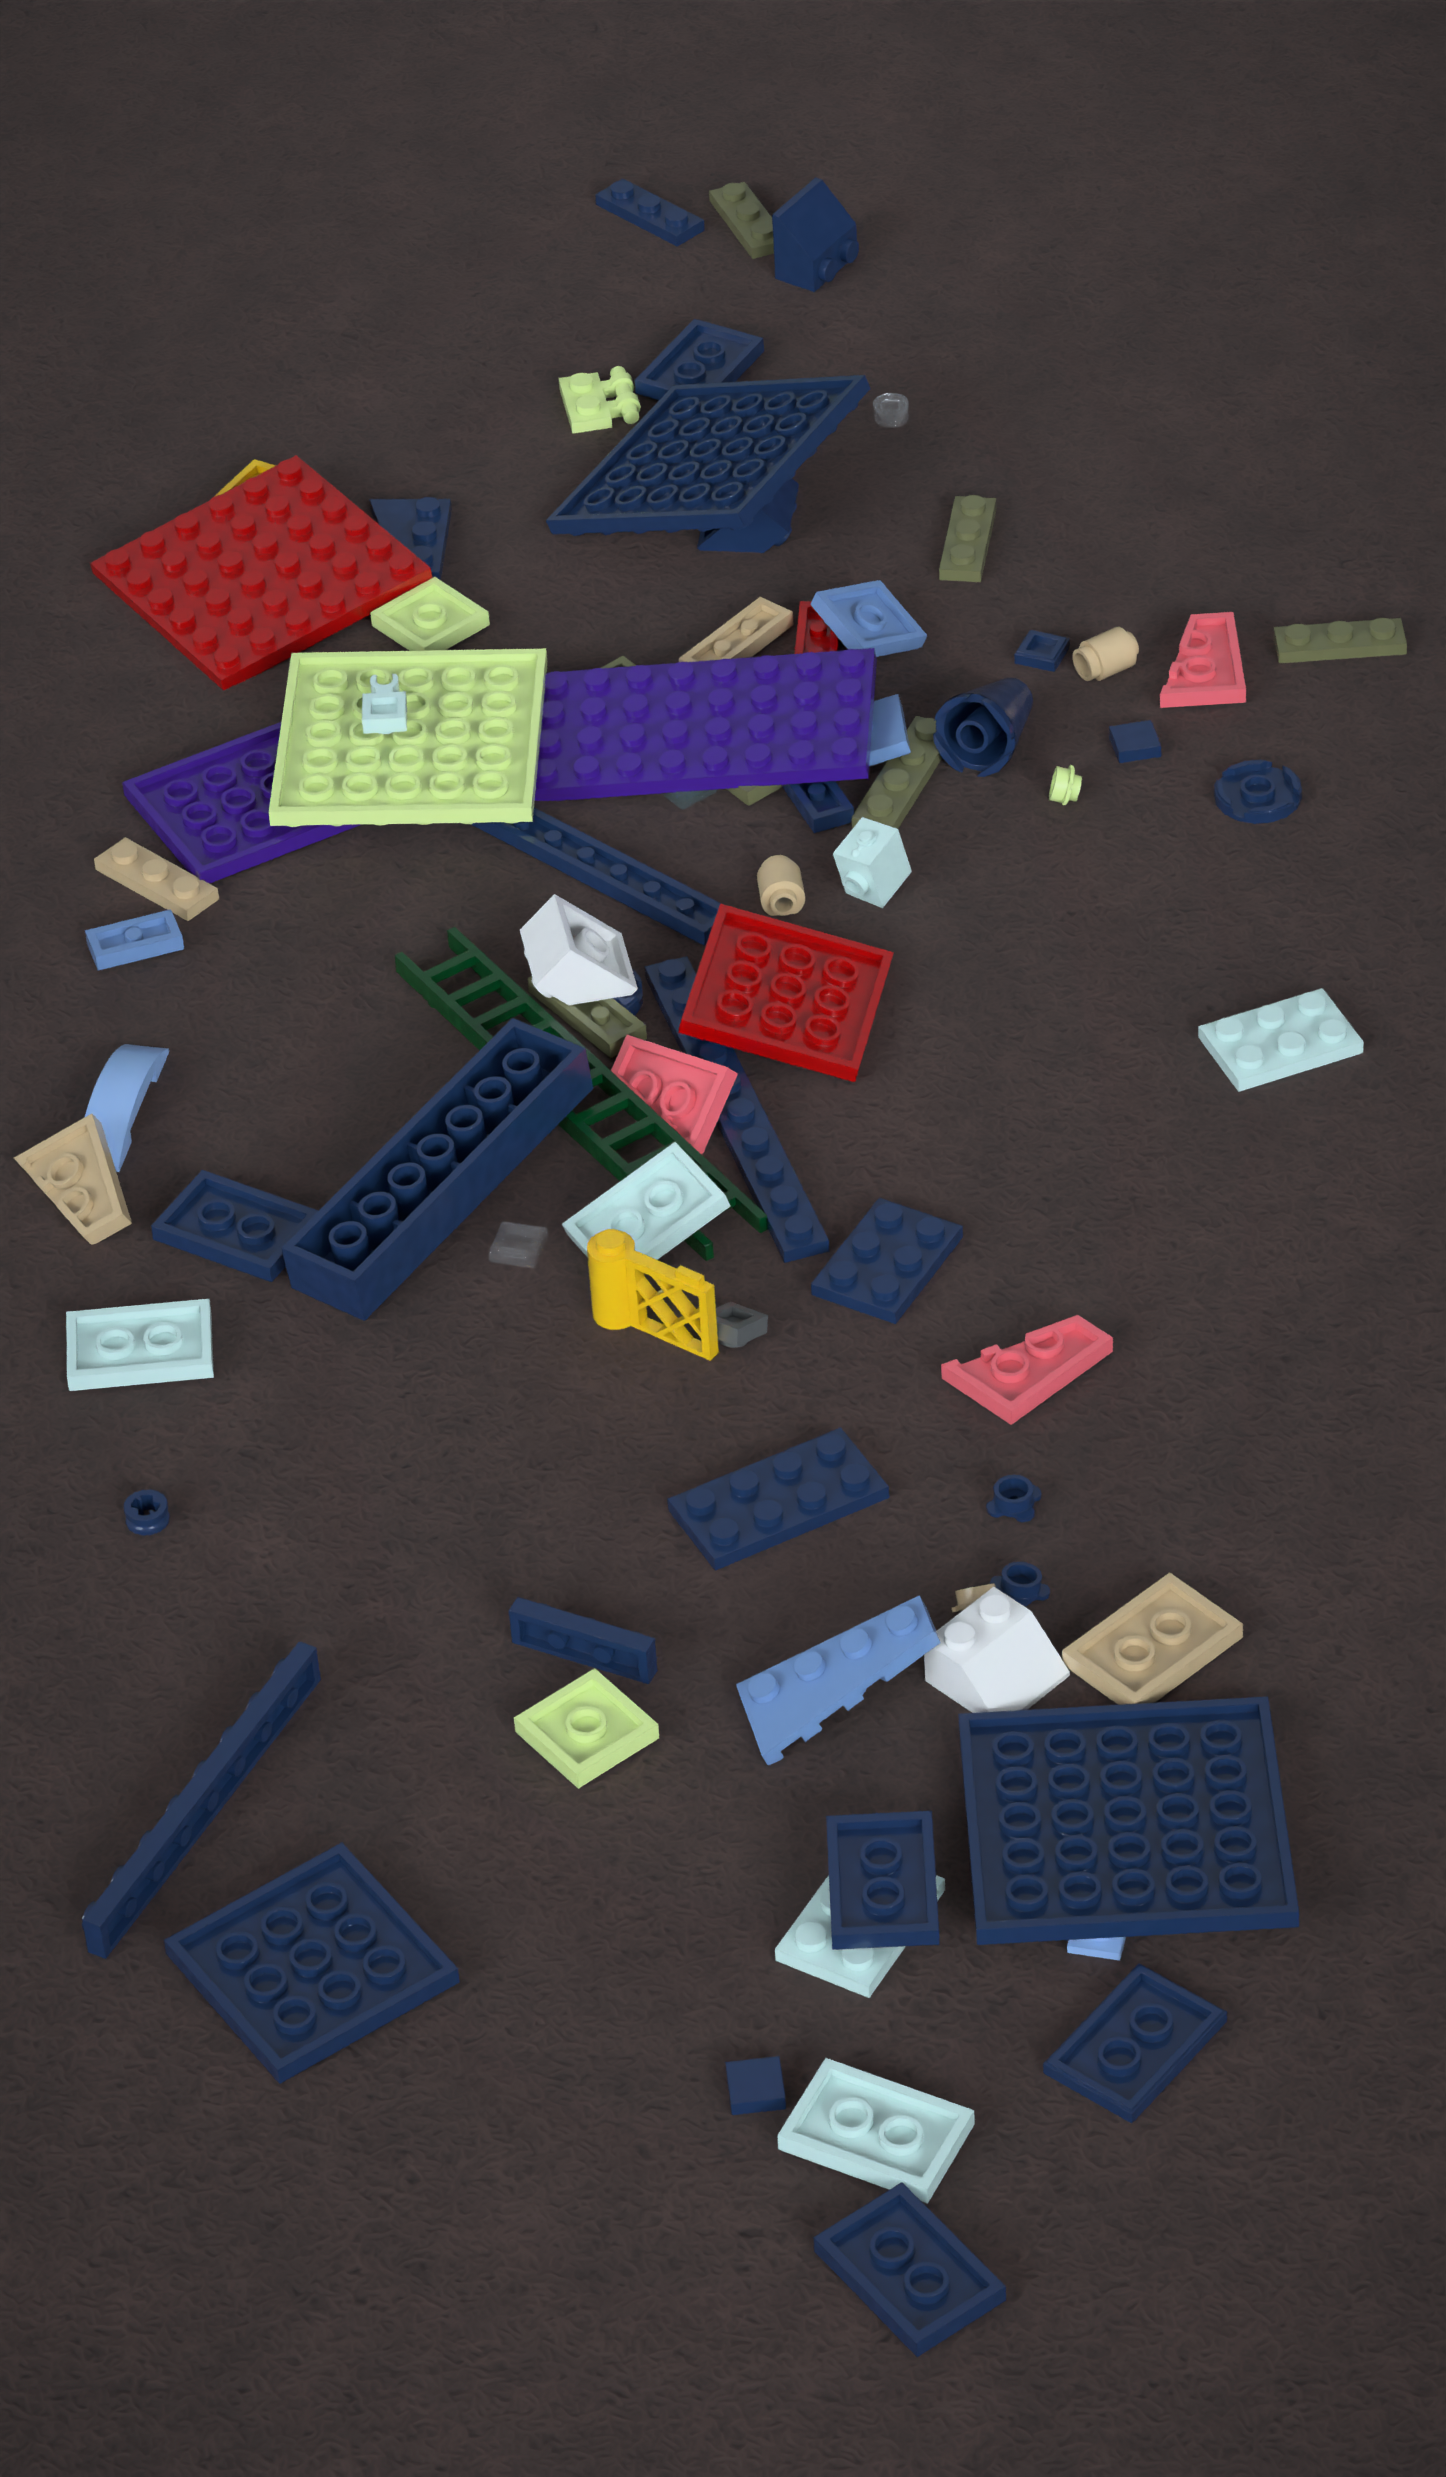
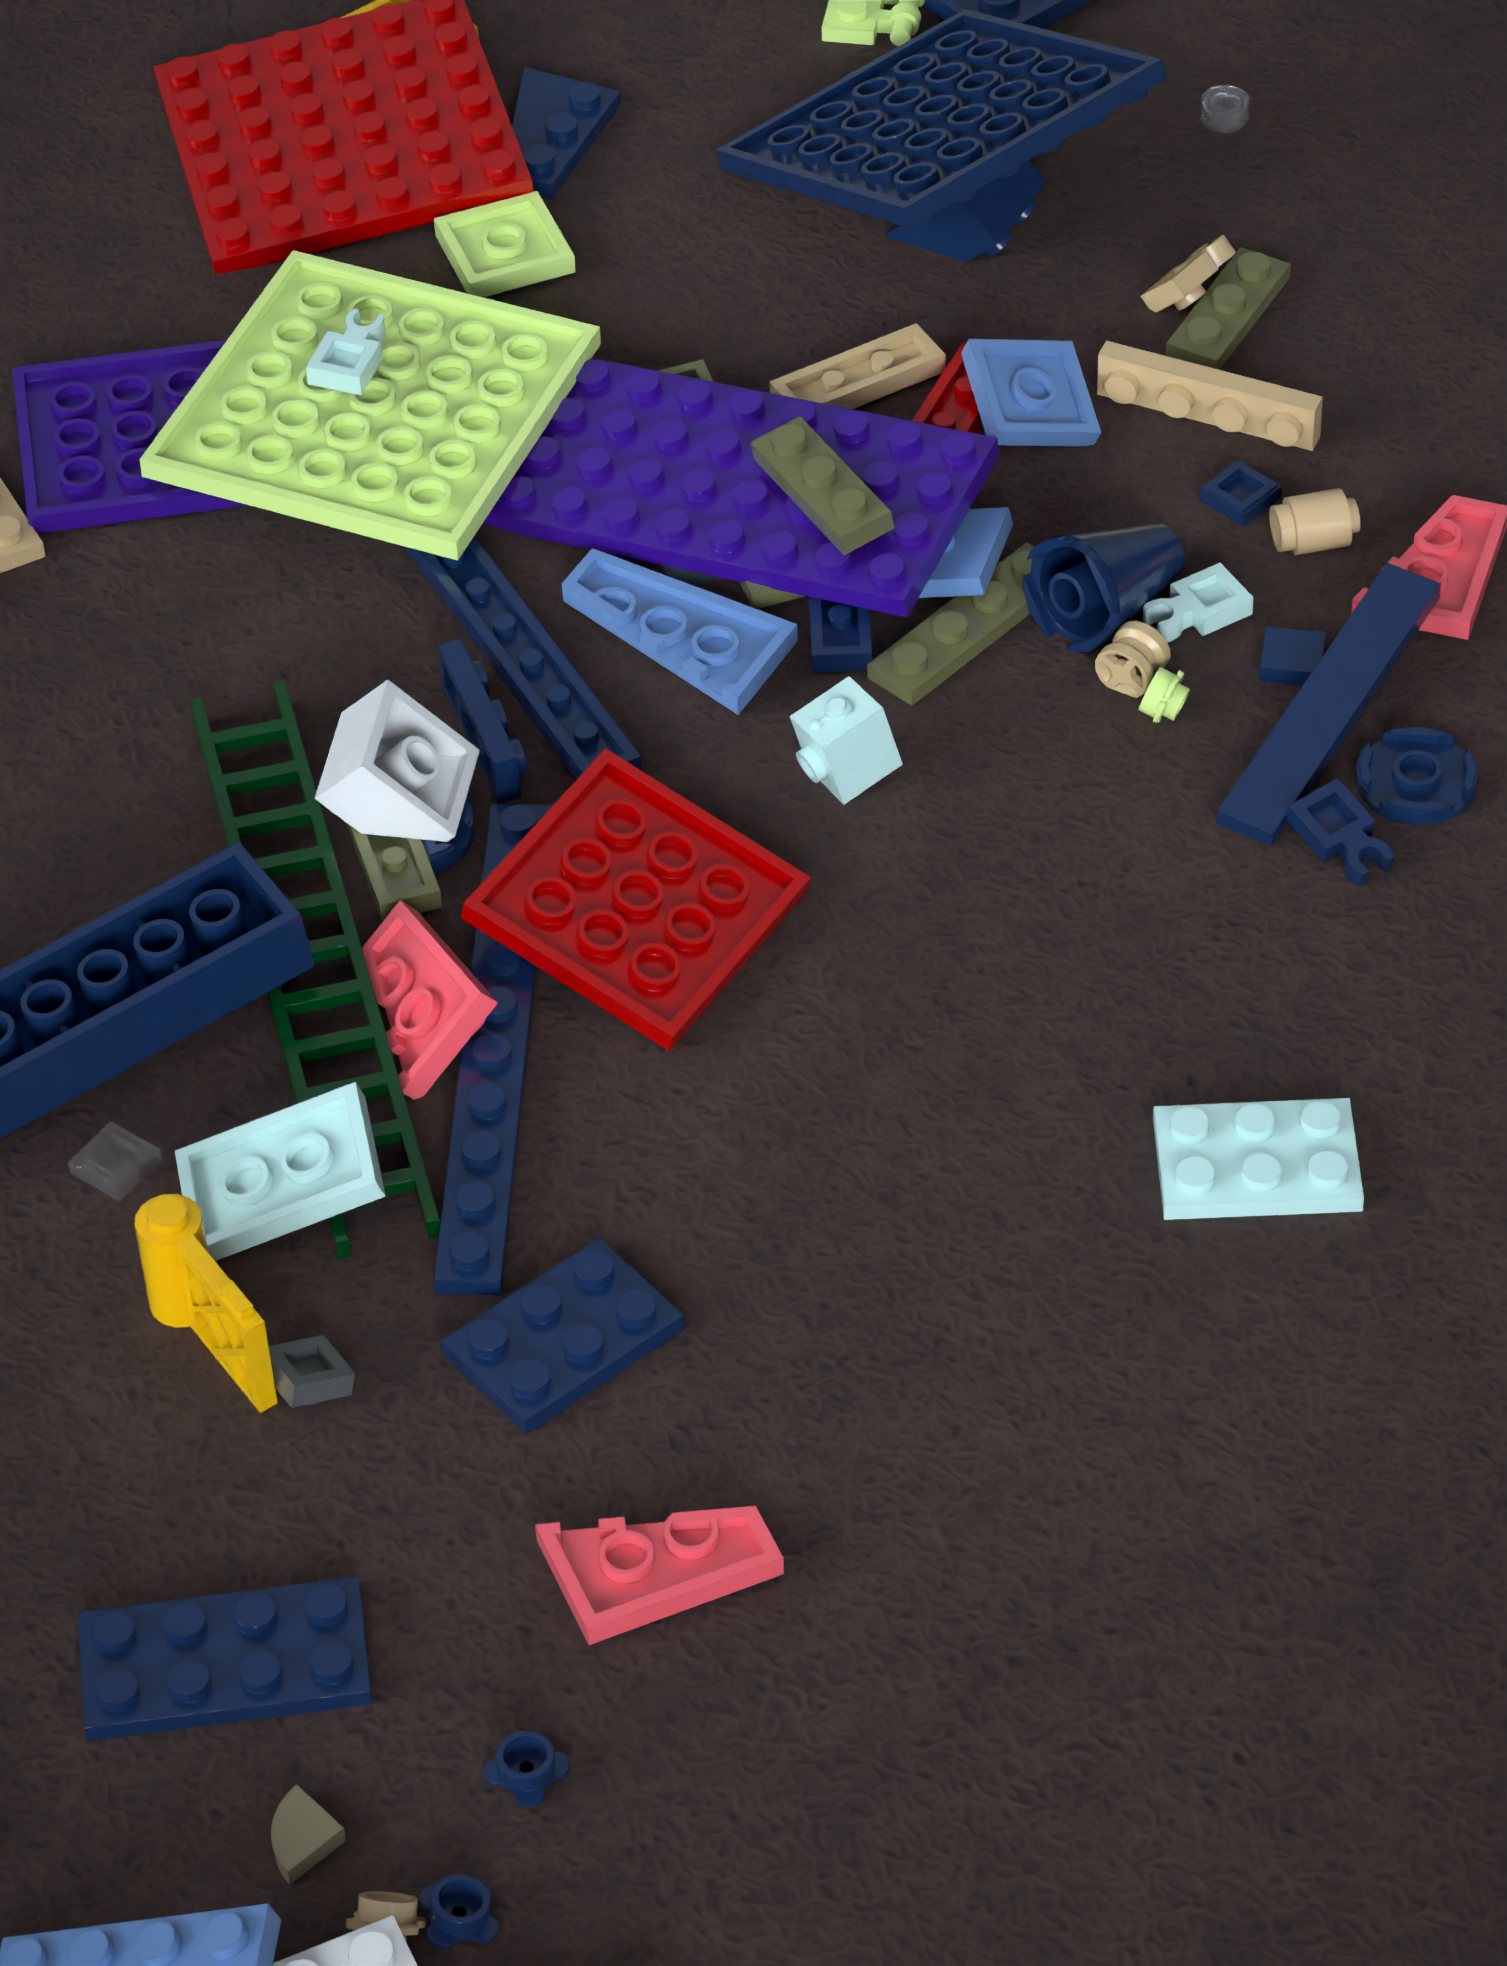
camera: 20 degrees right, 5 degrees up
(637, 933) = (482, 720): none -> dark blue plate
(709, 826) = (688, 630): none -> medium blue wing
(771, 706) = (822, 485): none -> olive plate
(780, 886) = (722, 738): tan brick -> none
(892, 1576) = (302, 1834): none -> dark tan tile
(930, 527) = (1183, 282): none -> tan plate
(989, 593) = (1209, 396): none -> tan plate
(1035, 778) = (1132, 658): none -> tan wheel
(1057, 720) = (1202, 601): none -> light aqua plate
(1180, 761) = (1329, 703): none -> dark blue tile
(1227, 833) = (1337, 824): none -> dark blue plate

